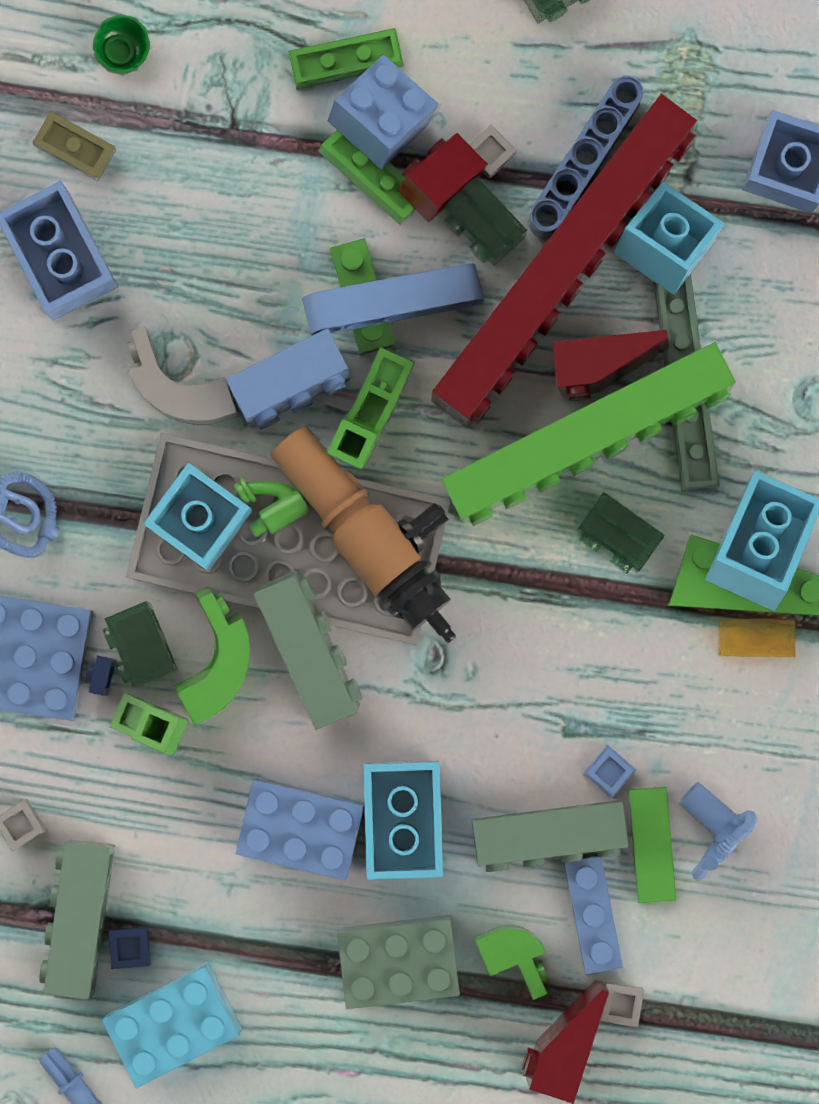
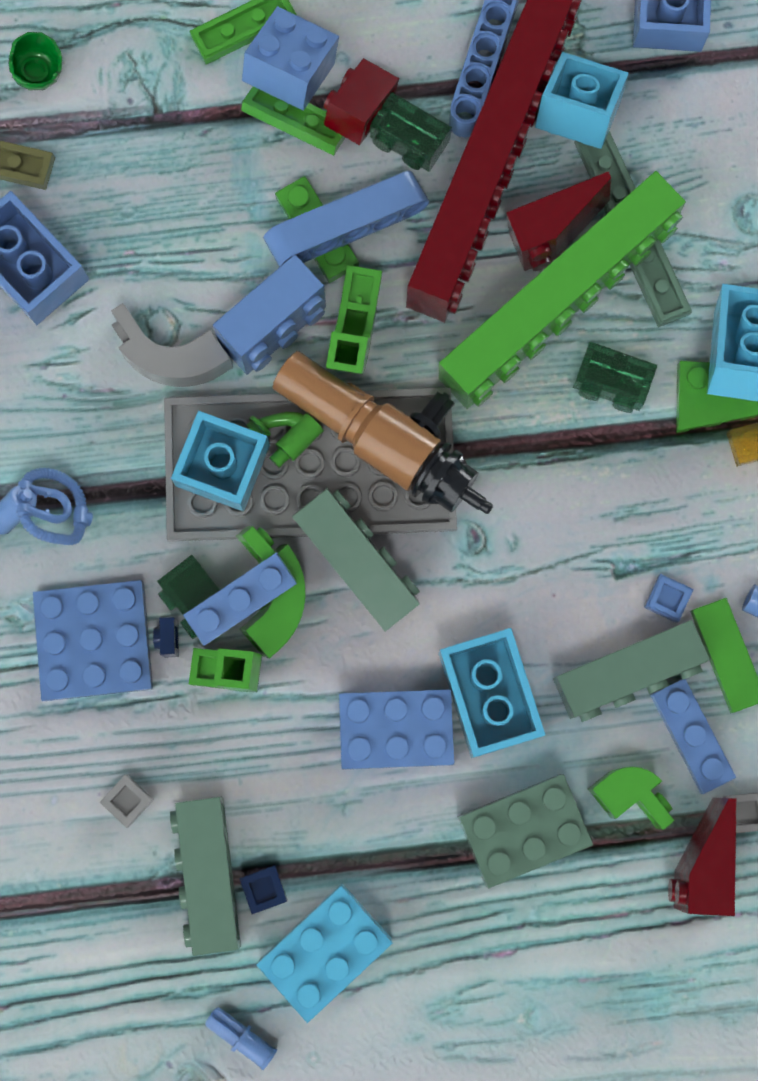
camera: 20 degrees left, 5 degrees down
(180, 660) = (240, 599): none -> medium blue plate
(493, 150) = (401, 66): light grey plate -> none

